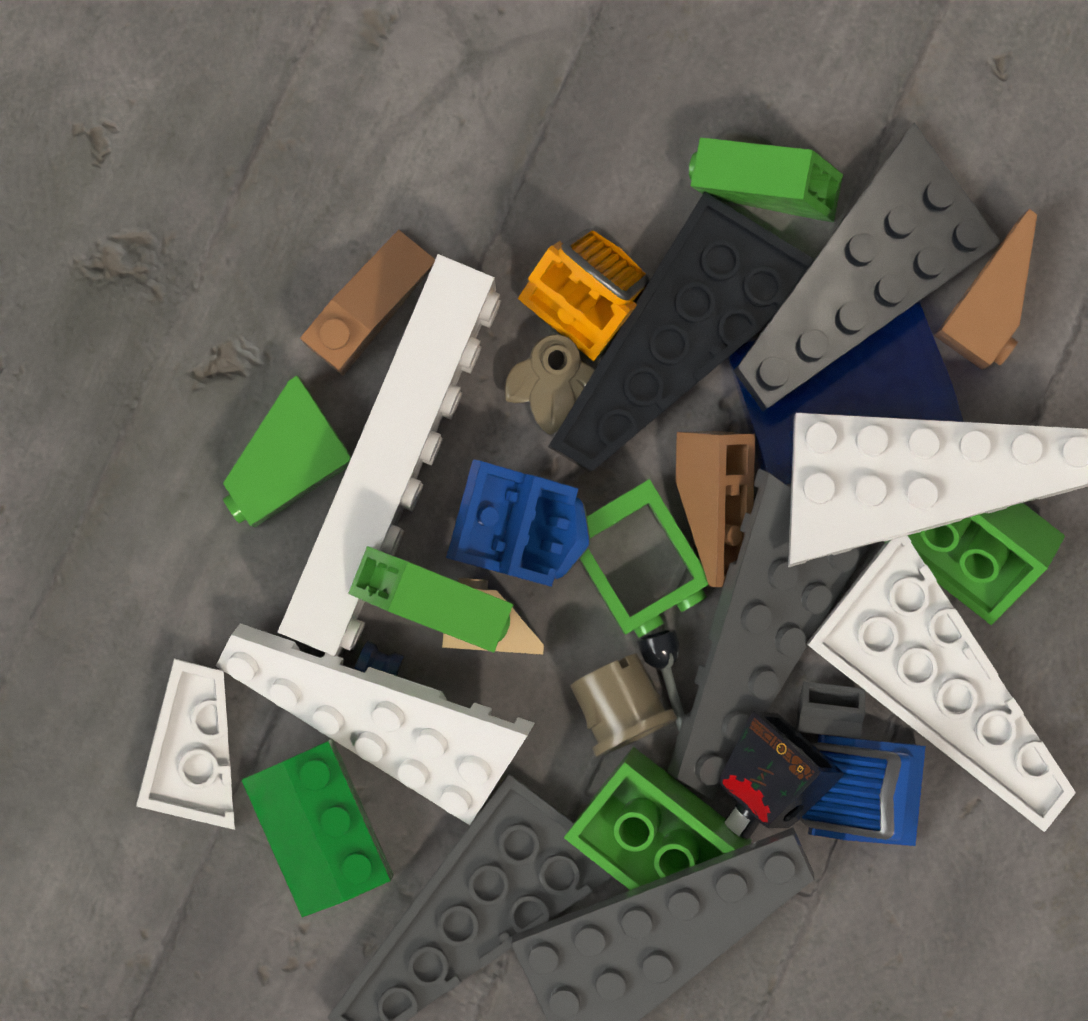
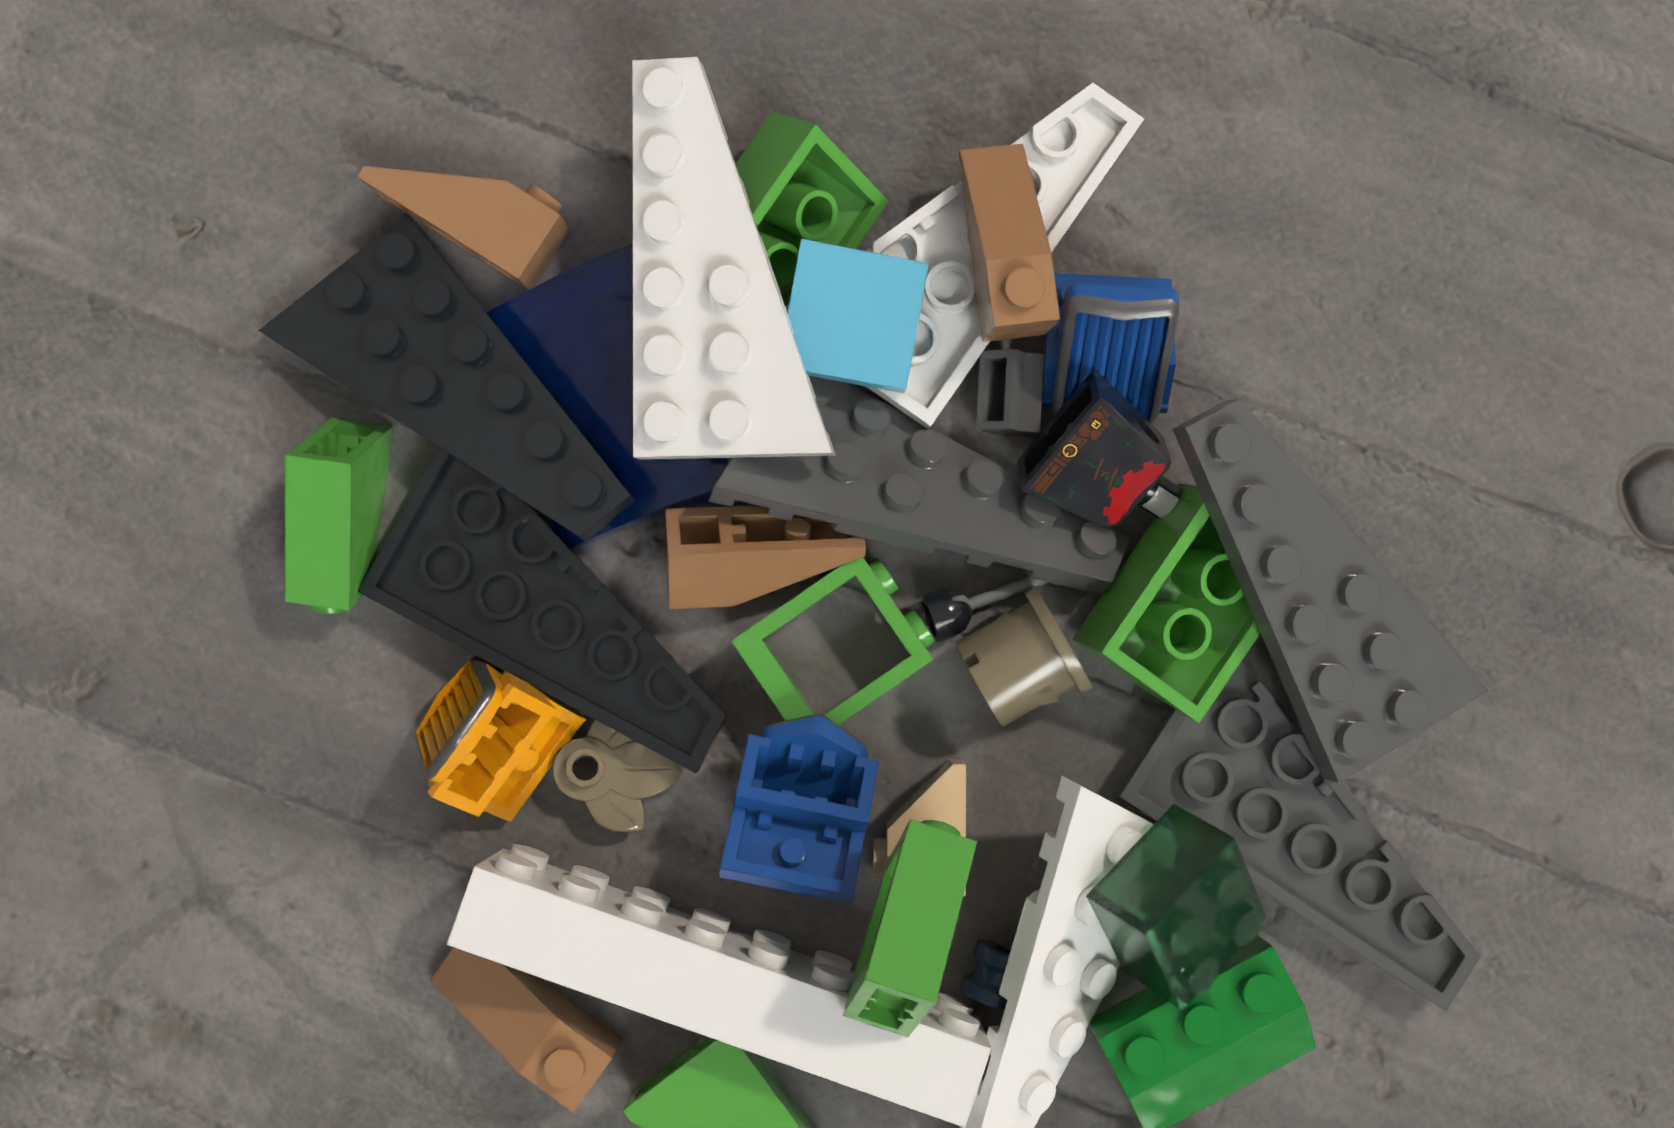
camera: 90 degrees left, 0 degrees up
(426, 808) = (1178, 906): none -> clear green brick
(898, 591) = (856, 314): none -> medium azure tile
(949, 713) = (1007, 244): none -> medium nougat slope

